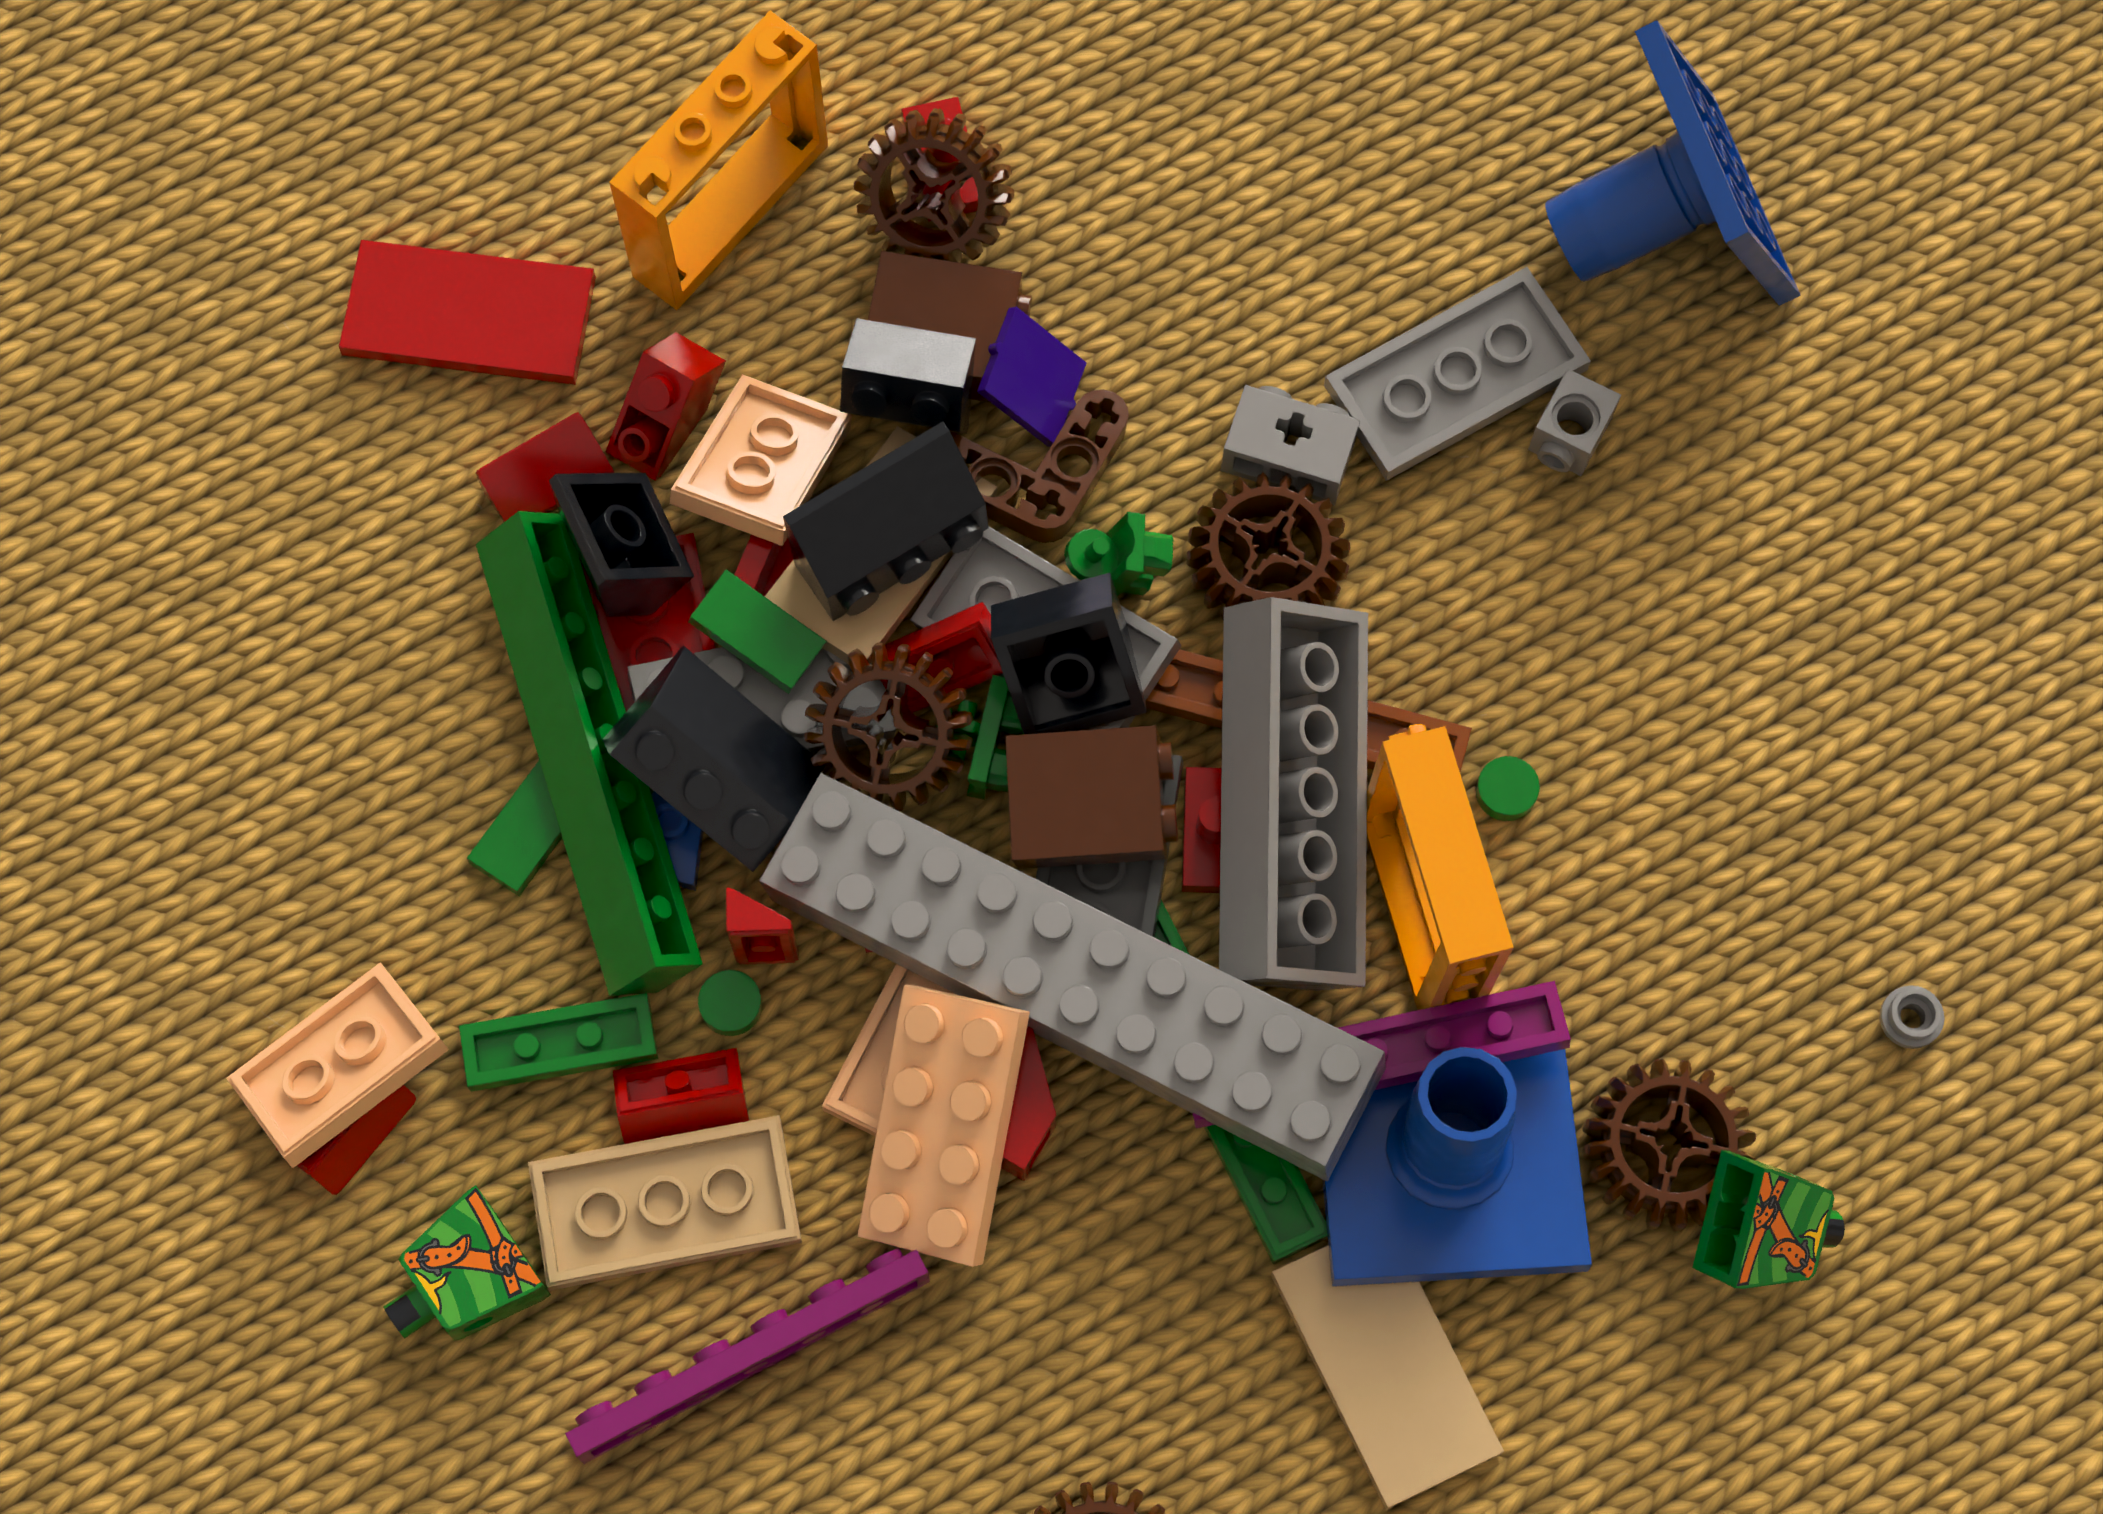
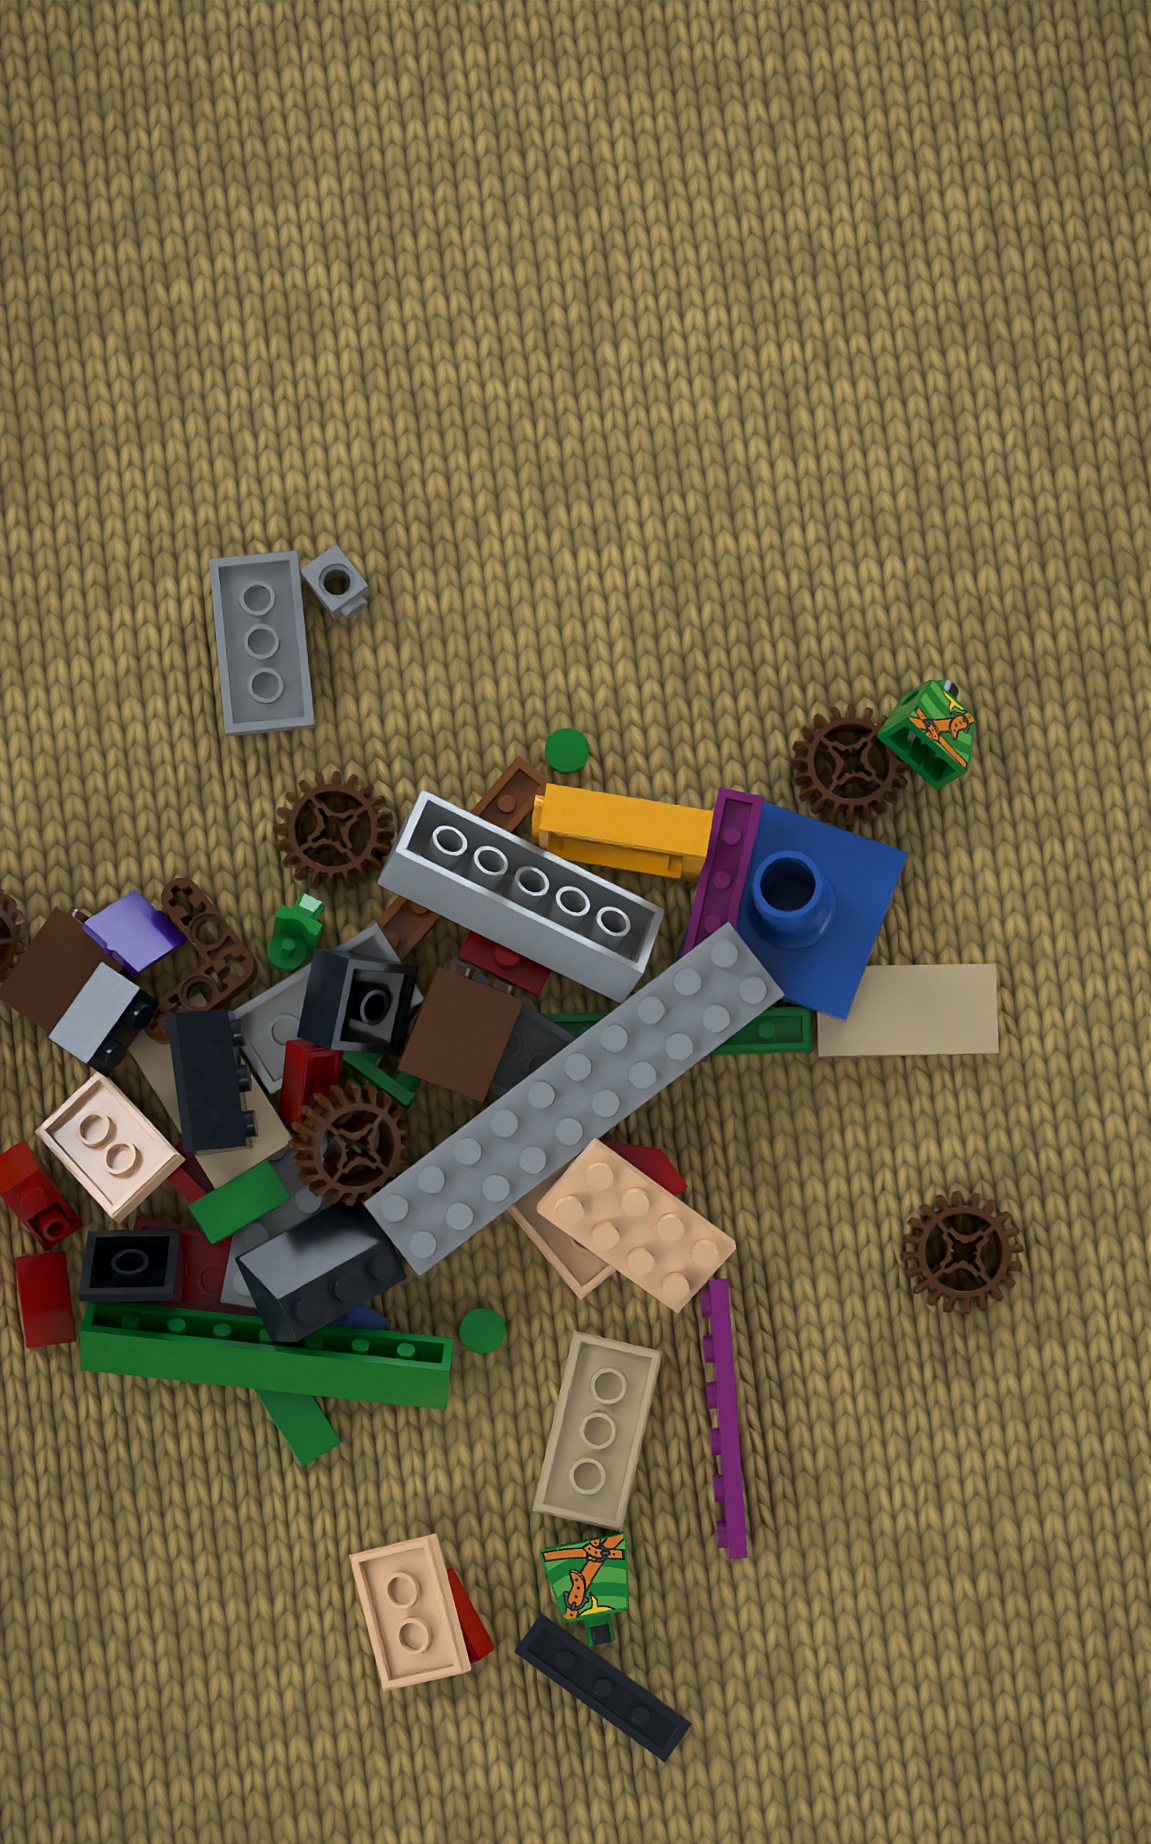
camera: 70 degrees left, 10 degrees up
(337, 1350) = (603, 1687): none -> black plate
(558, 1042) = (459, 1456): green plate -> none
(680, 1095) = (530, 1390): red slope -> none
(758, 932) = (450, 1293): red slope -> none
(1263, 426) = (258, 803): light grey brick -> none
(1671, 188) = (208, 434): blue piece -> none
(1927, 1008) = (839, 556): light grey plate -> none

